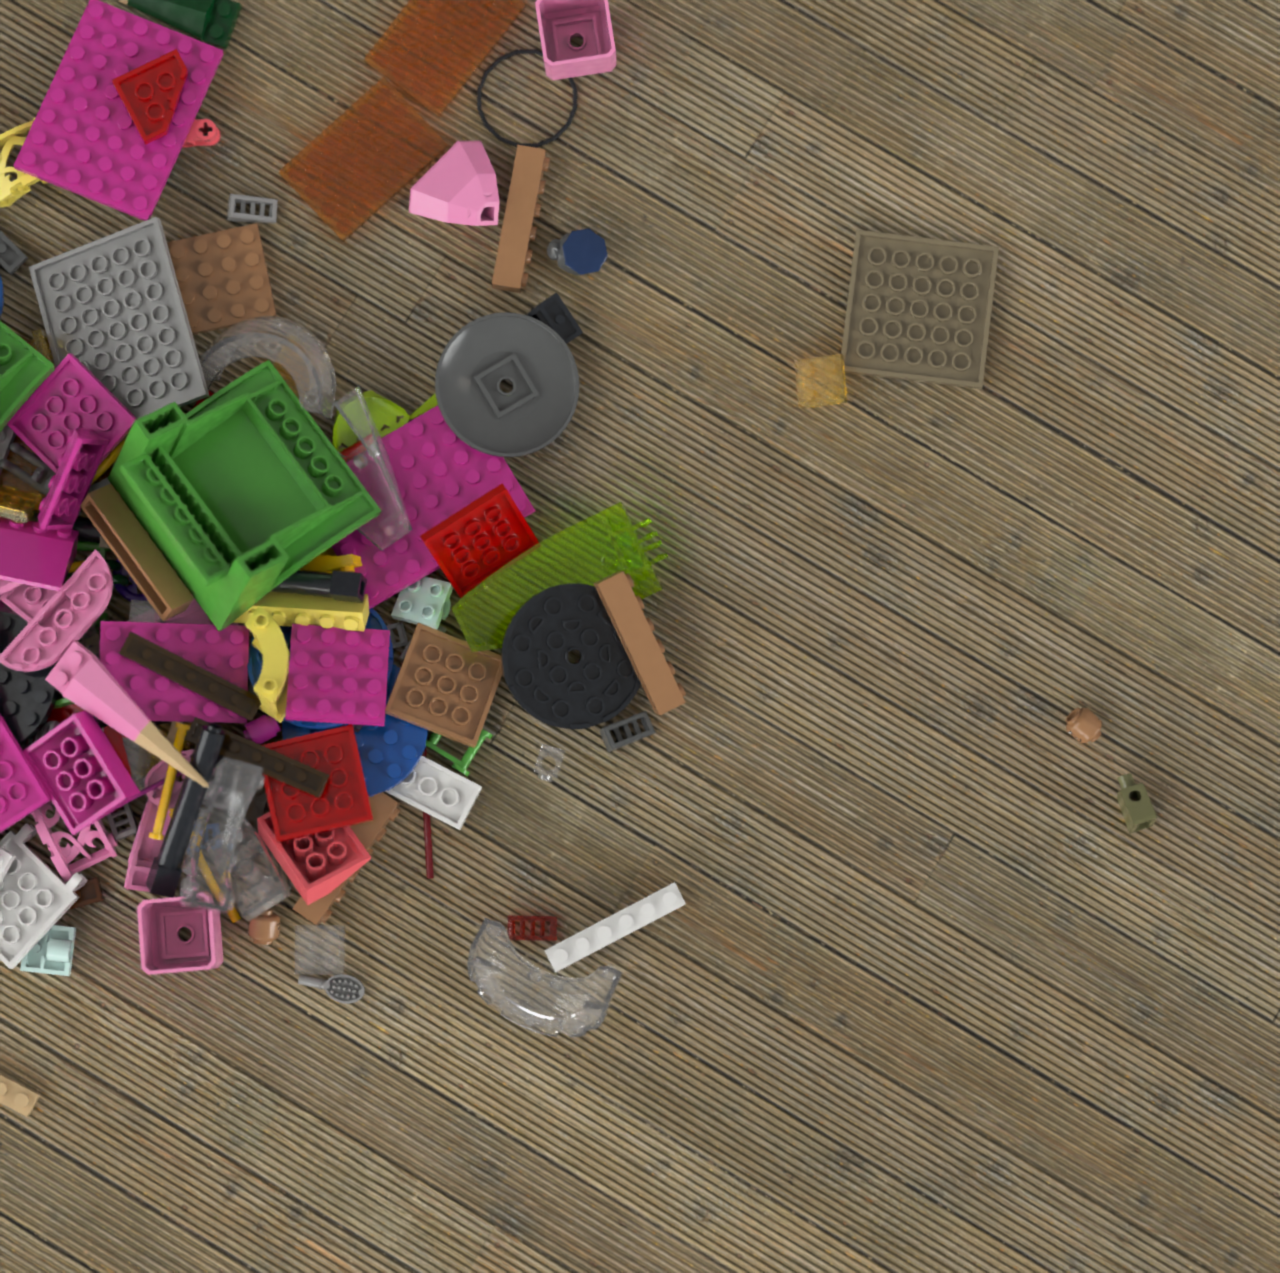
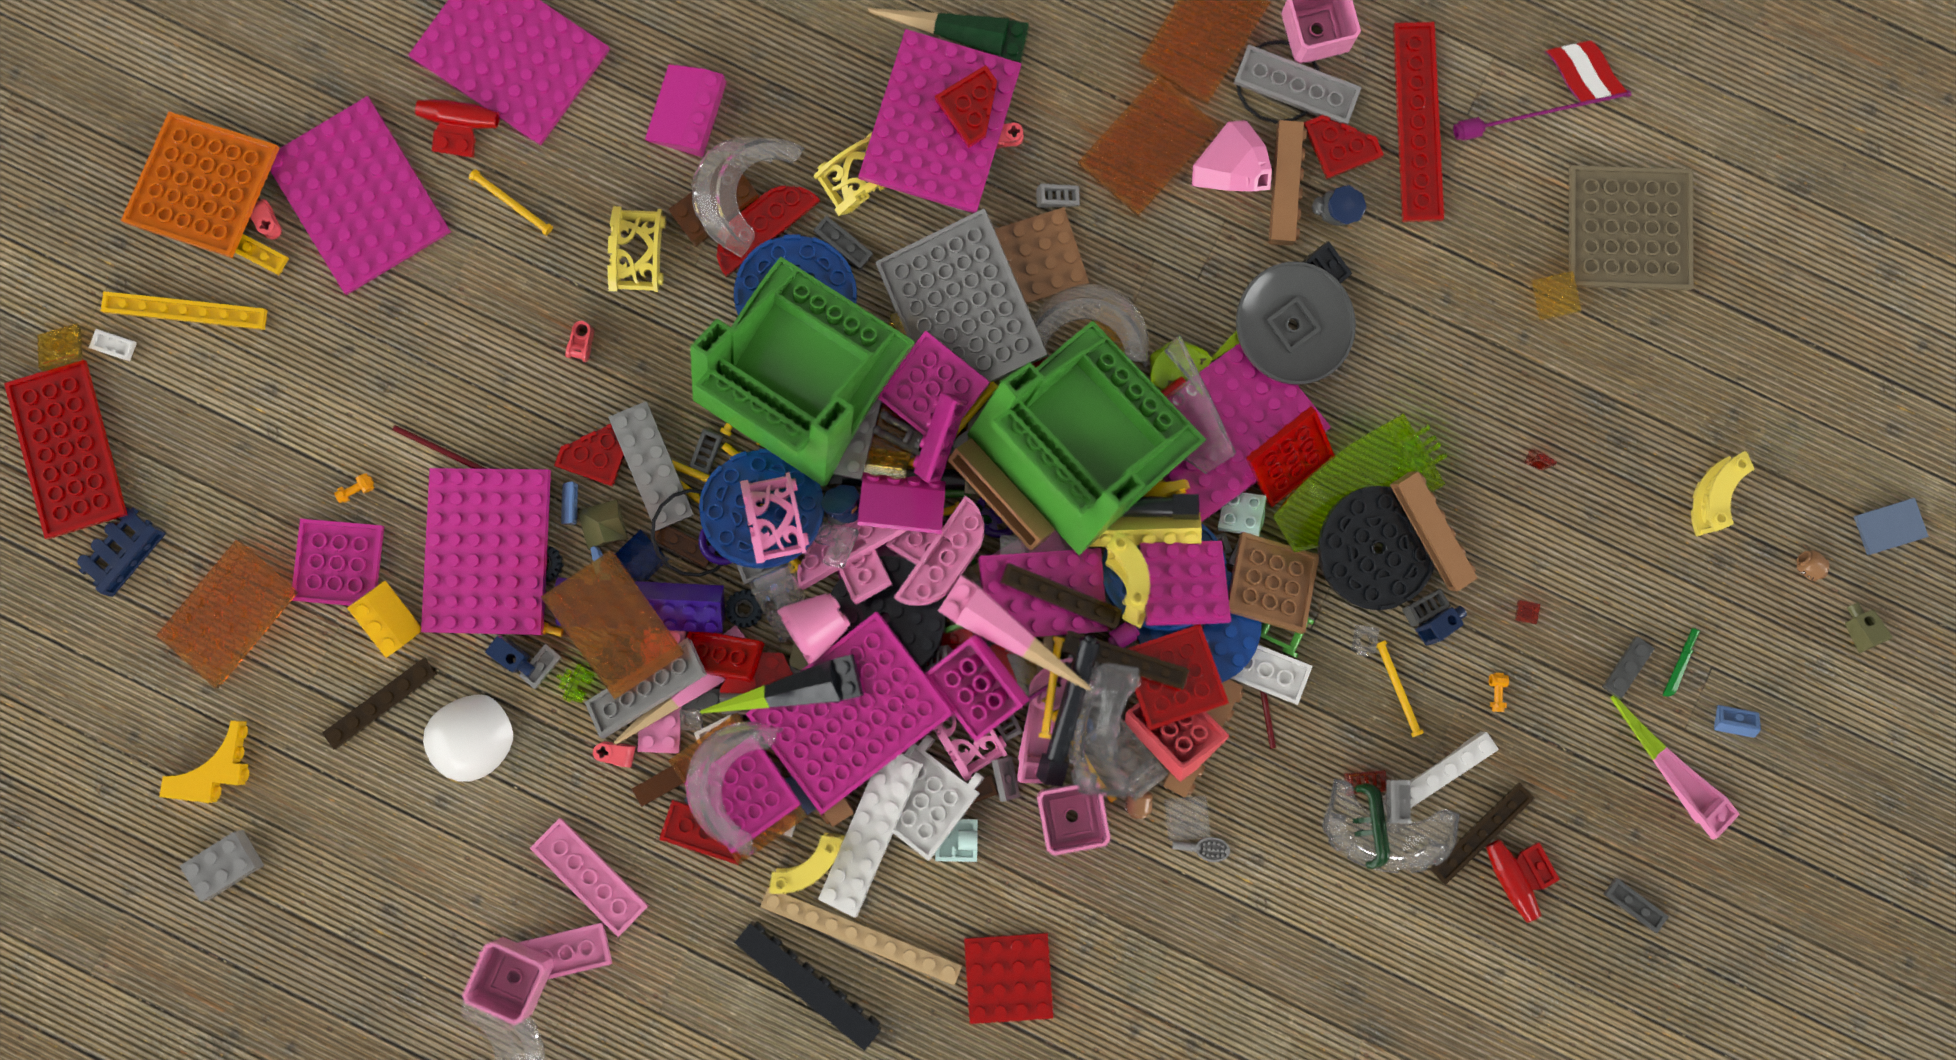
camera: 10 degrees left, 0 degrees up
(91, 1114) = (1008, 978): none -> red plate
(112, 883) = (1006, 779): none -> light grey plate
(532, 978) = (1379, 827): none -> dark green piece
(546, 105) = (1297, 85): none -> light grey plate
(560, 952) = (1398, 801): none -> light grey hinge
(583, 822) = (1399, 689): none -> yellow bar
(589, 181) = (1340, 146): none -> red plate
(632, 757) = (1441, 625): none -> dark blue torso
(659, 1000) = (1483, 832): none -> dark brown plate
(683, 161) = (1418, 122): none -> red plate
(699, 1053) = (1522, 875): none -> red plate
(701, 826) = (1498, 681): none -> light orange bar
(743, 748) = (1527, 612): none -> clear red plate
(777, 571) = (1539, 460): none -> clear red slope
(829, 1101) = (1636, 905): none -> dark grey plate
(854, 824) = (1628, 667): none -> dark grey plate
(887, 122) = (1584, 73): none -> flag
(917, 828) = (1677, 674): none -> green piece
(917, 983) = (1699, 797): none -> bright pink plate
(973, 627) = (1714, 494): none -> light yellow fence
(975, 899) = (1737, 721): none -> medium blue slope
(1183, 688) = (1891, 526): none -> sand blue tile

